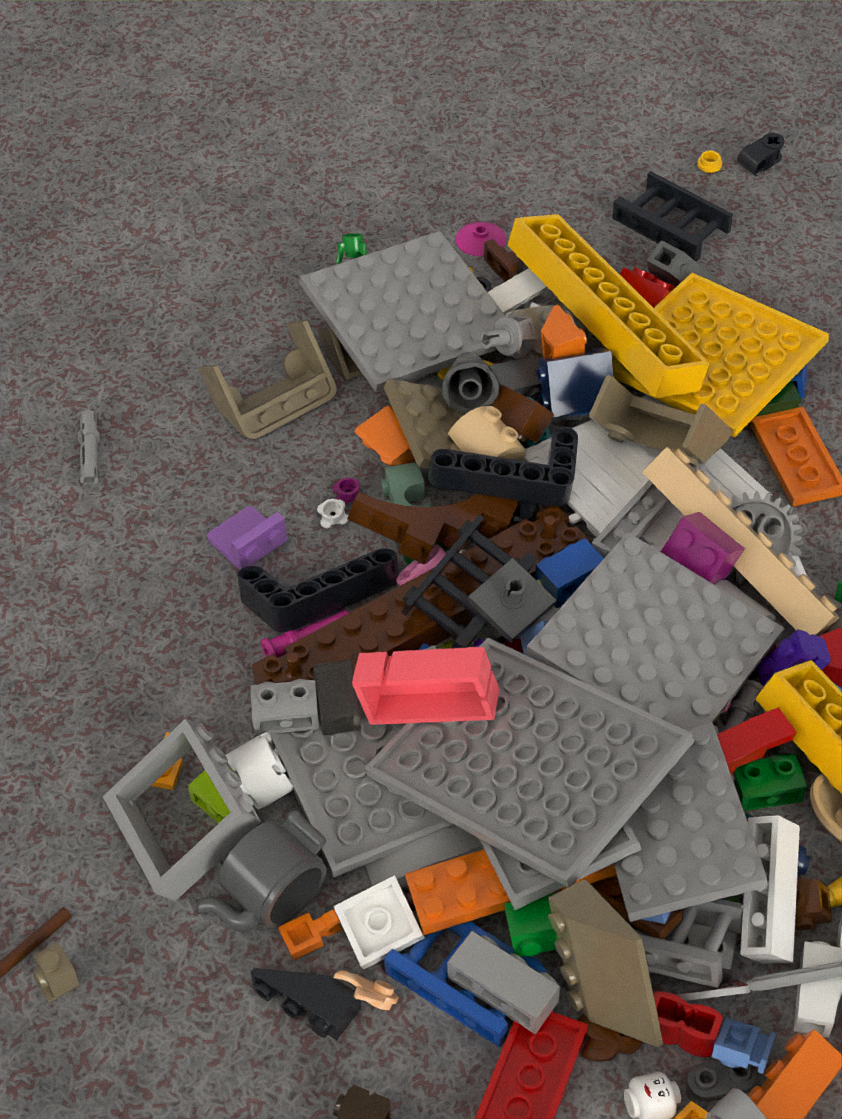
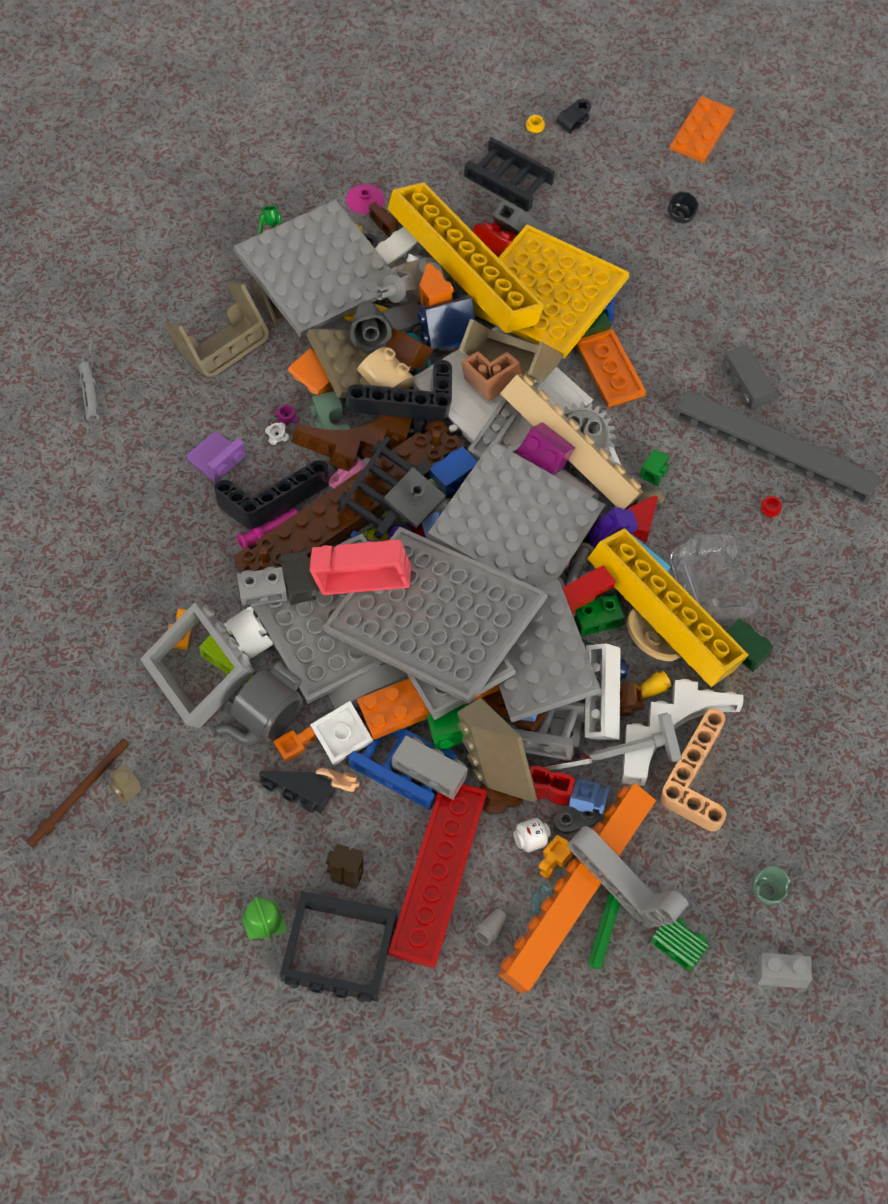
camera: 10 degrees left, 10 degrees up
(629, 452) = (490, 377): none -> nougat brick

